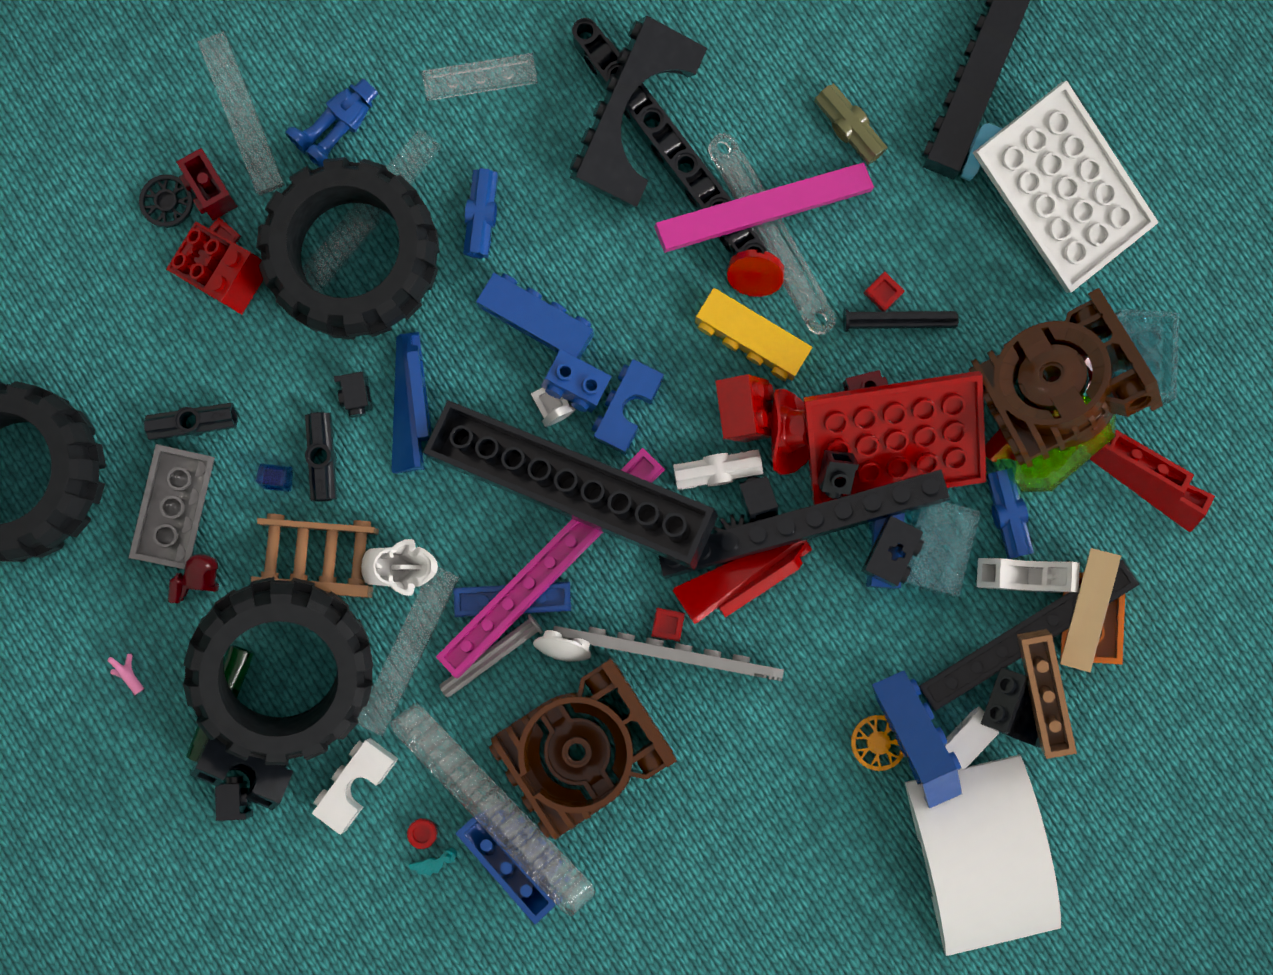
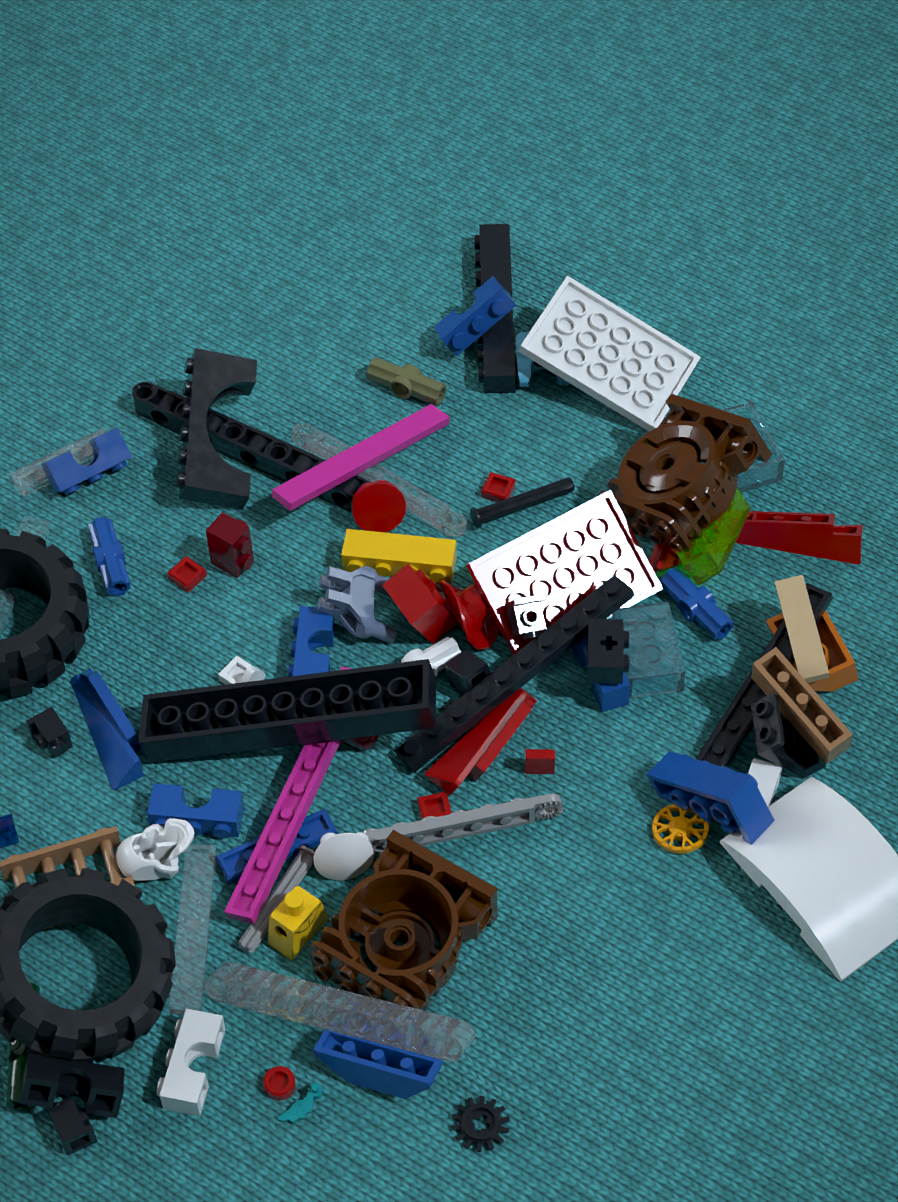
camera: 25 degrees left, 30 degrees down
(321, 476) = (45, 807): black piece -> none
(430, 524) = (218, 817): none -> blue arch
(477, 100) = (66, 473): none -> blue arch
(497, 691) = (300, 918): none -> yellow torso
(535, 317) = (195, 614): blue brick -> none
(547, 263) = (187, 574): none -> red tile
(572, 959) = (476, 1112): none -> black gear
(575, 382) = (255, 644): blue brick -> none
(596, 258) = (230, 545): none -> dark red brick
(688, 376) = (352, 601): none -> sand blue connector
(783, 621) = (539, 761): none -> red tile
(972, 80) = (490, 305): none -> blue arch
(1028, 575) = (739, 642): white arch -> none

